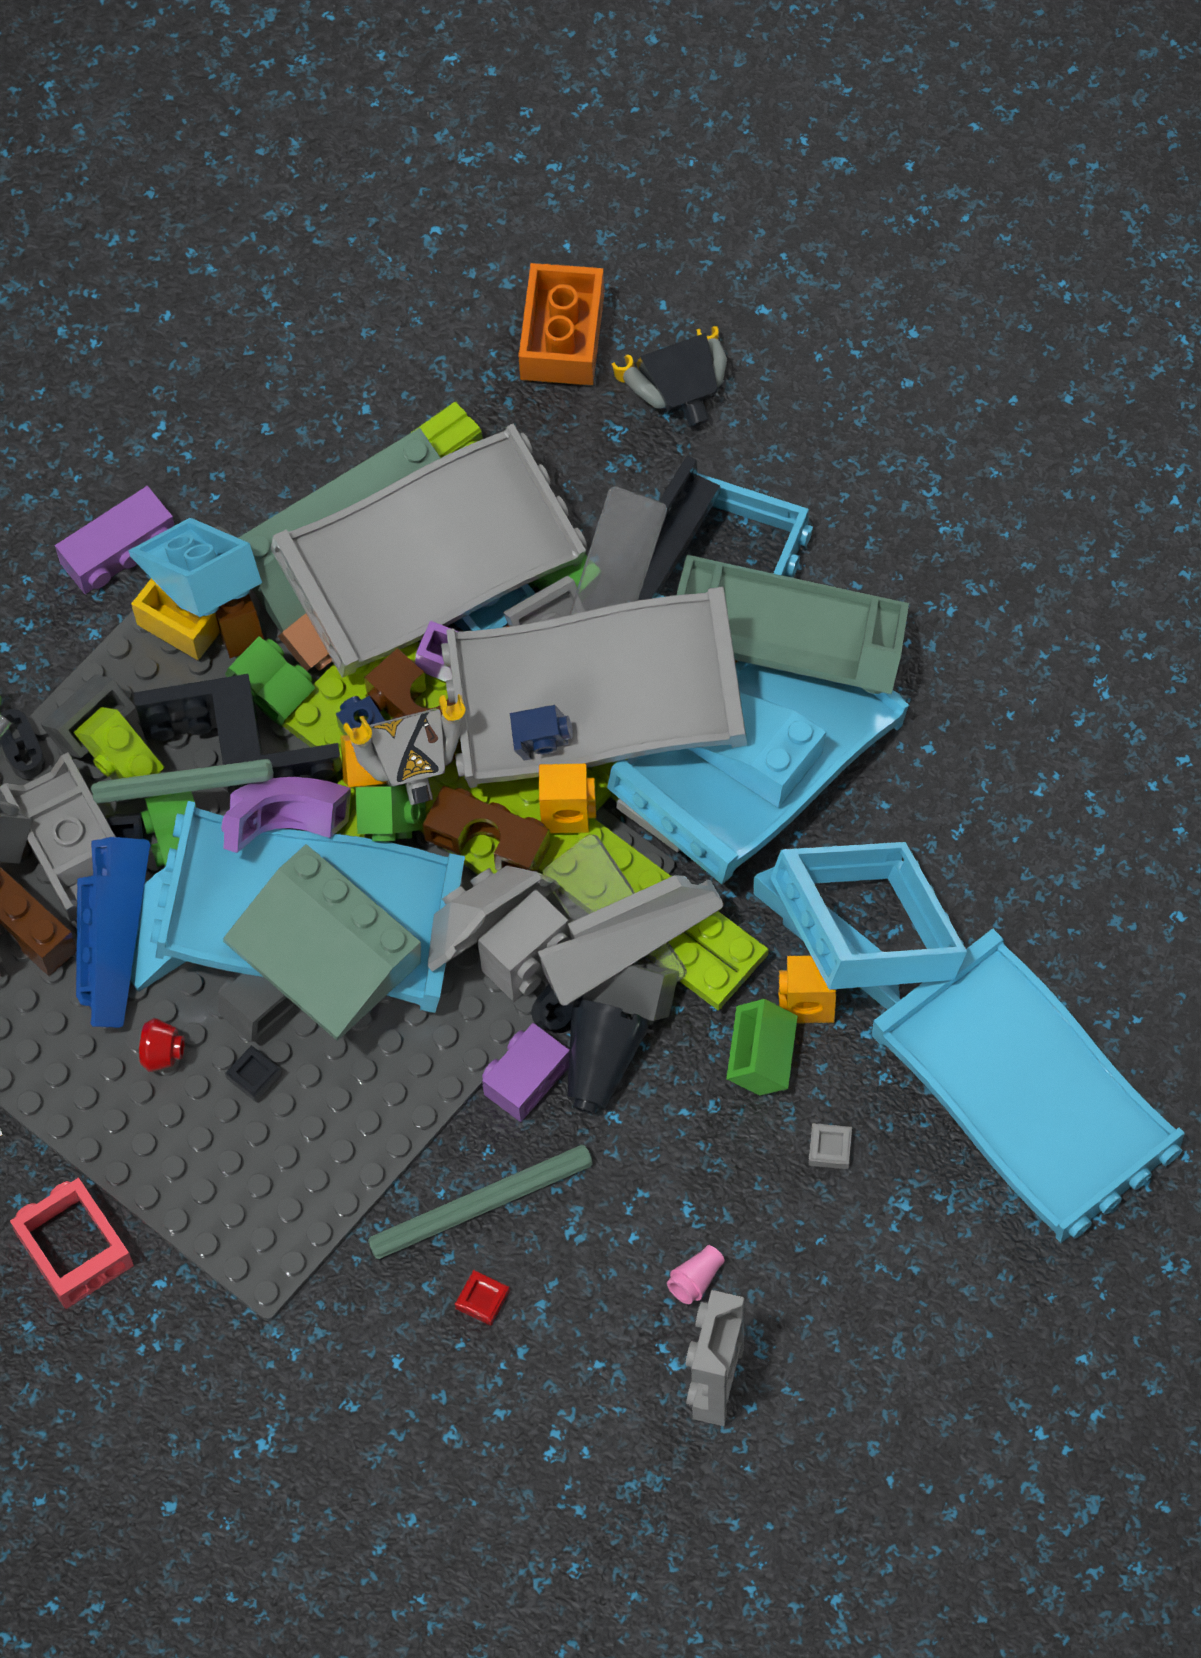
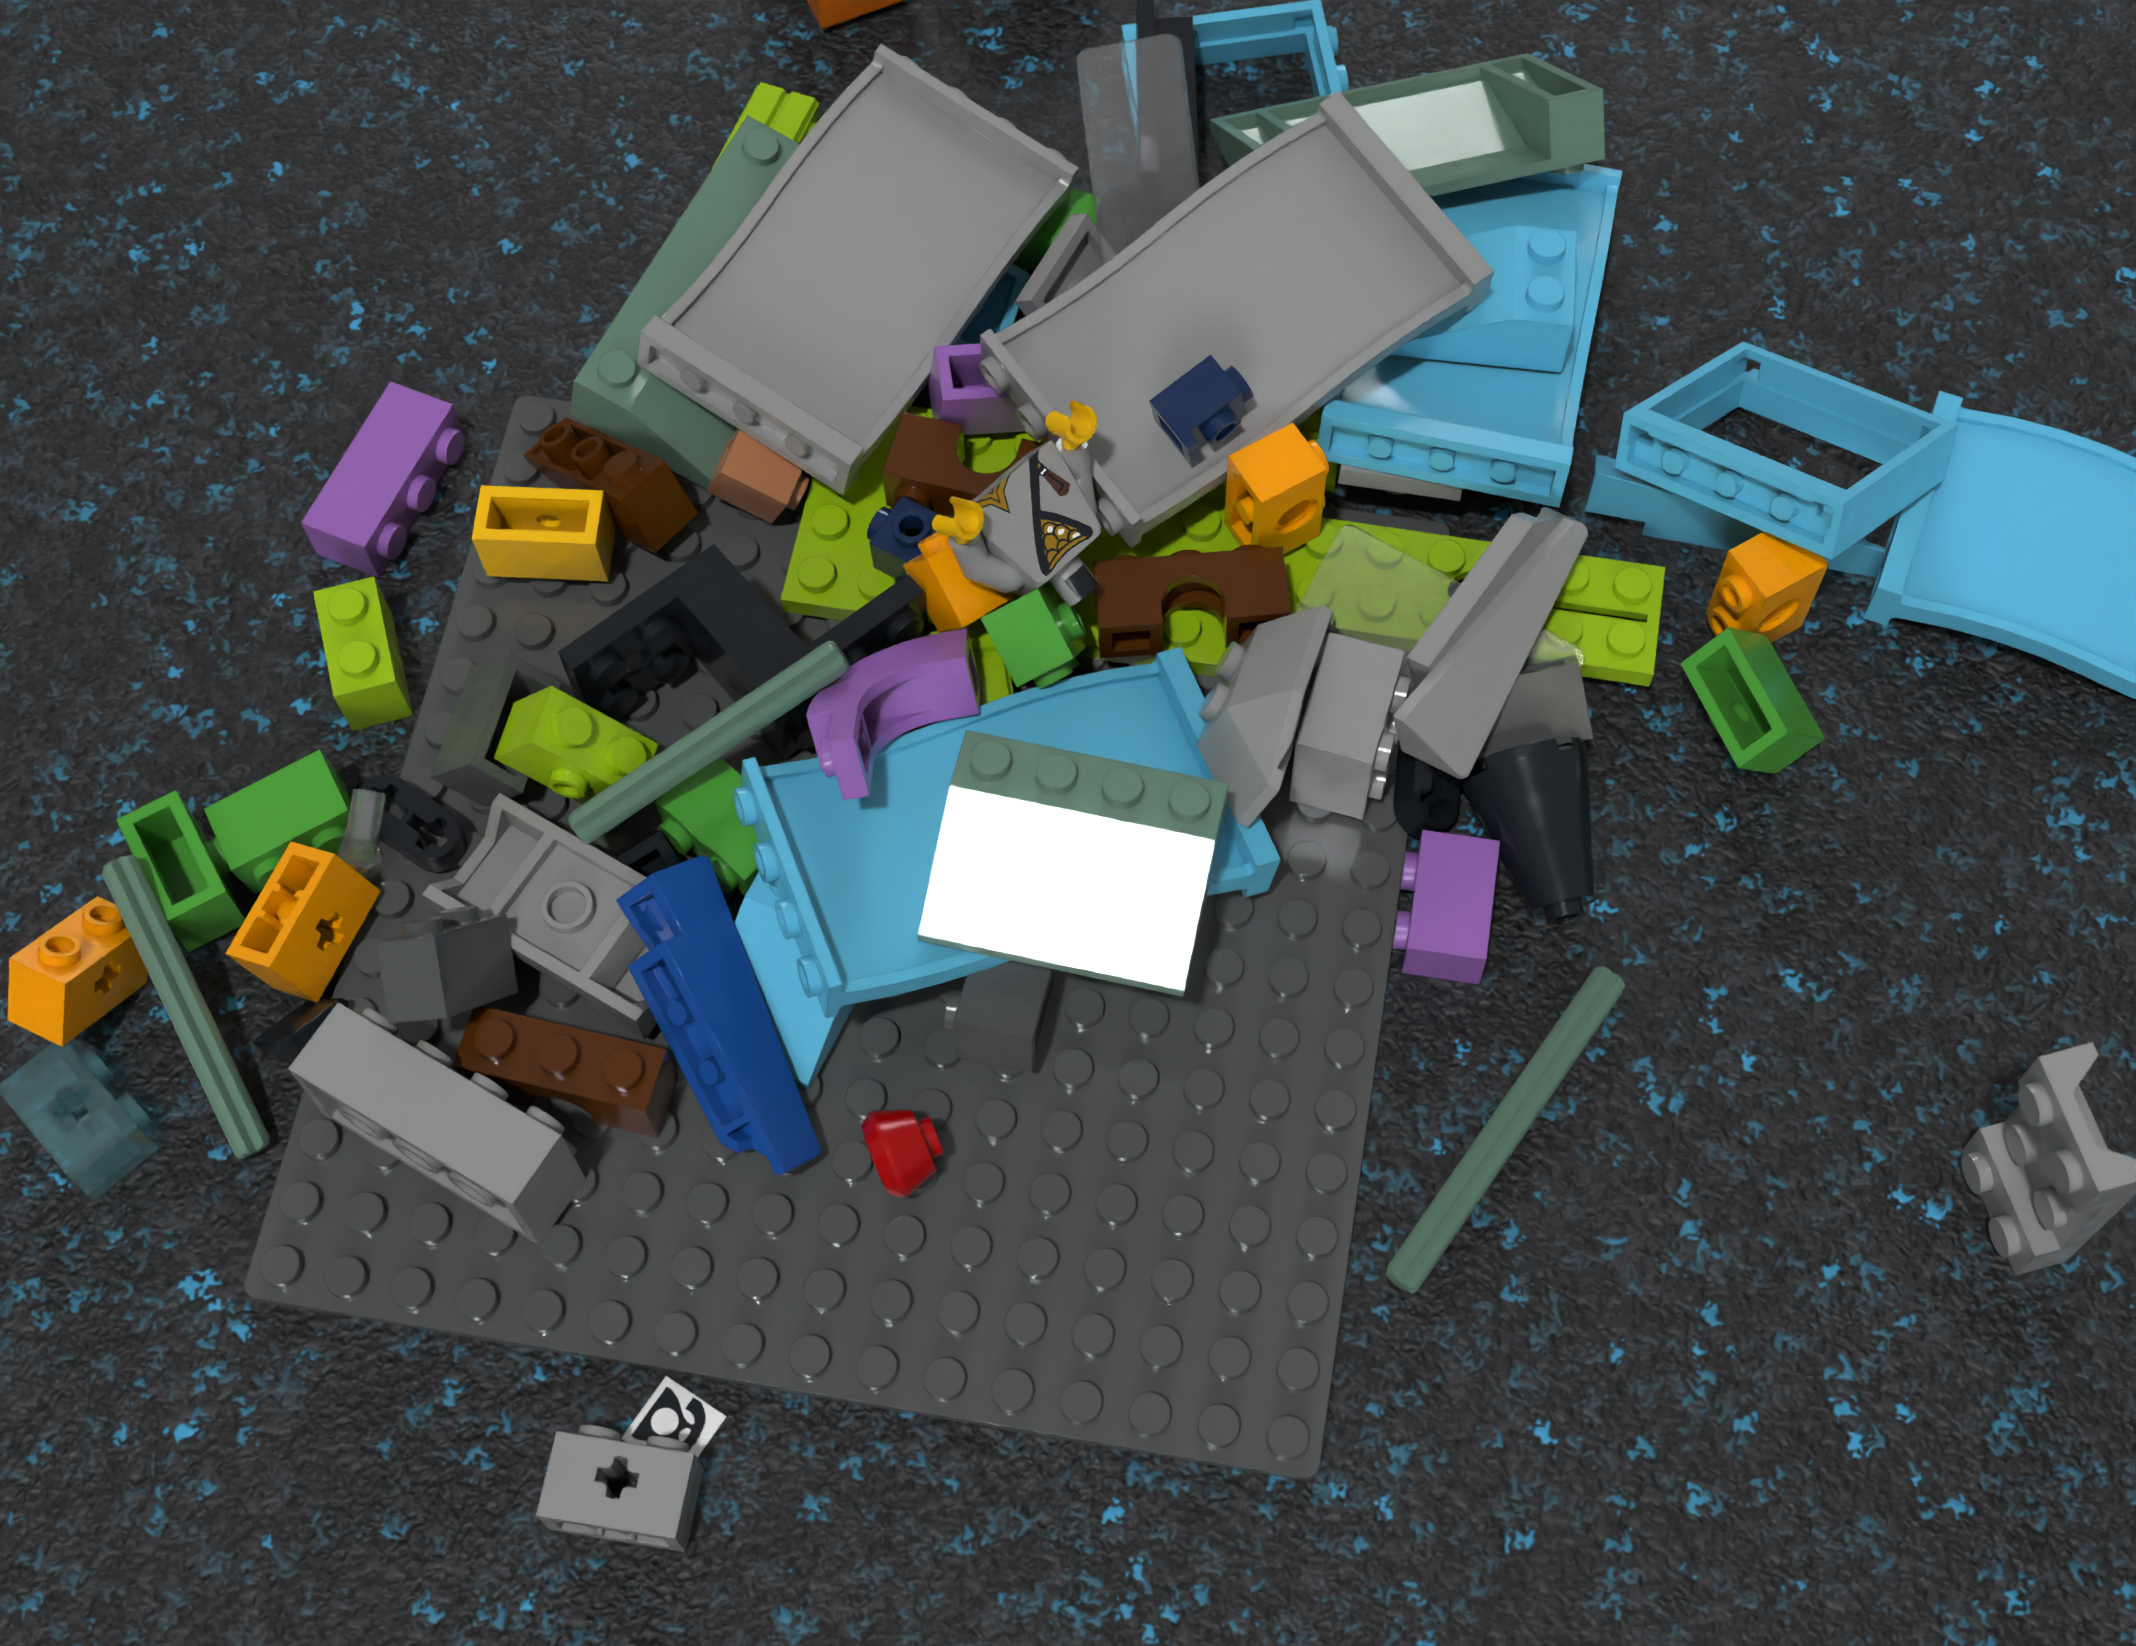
camera: 30 degrees left, 0 degrees up
(48, 636) = (362, 653): none -> lime brick
(90, 1274) = (1008, 1560): coral window -> none
(198, 566) = (545, 436): medium azure slope -> none
(253, 1073) = (1060, 1117): black tile -> none
(274, 682) = (759, 545): bright green brick -> none
(482, 1297) = (1604, 1266): red tile -> none
(693, 1277) = (1882, 1066): bright pink cone -> none
(830, 1146) = (1923, 790): light grey tile -> none

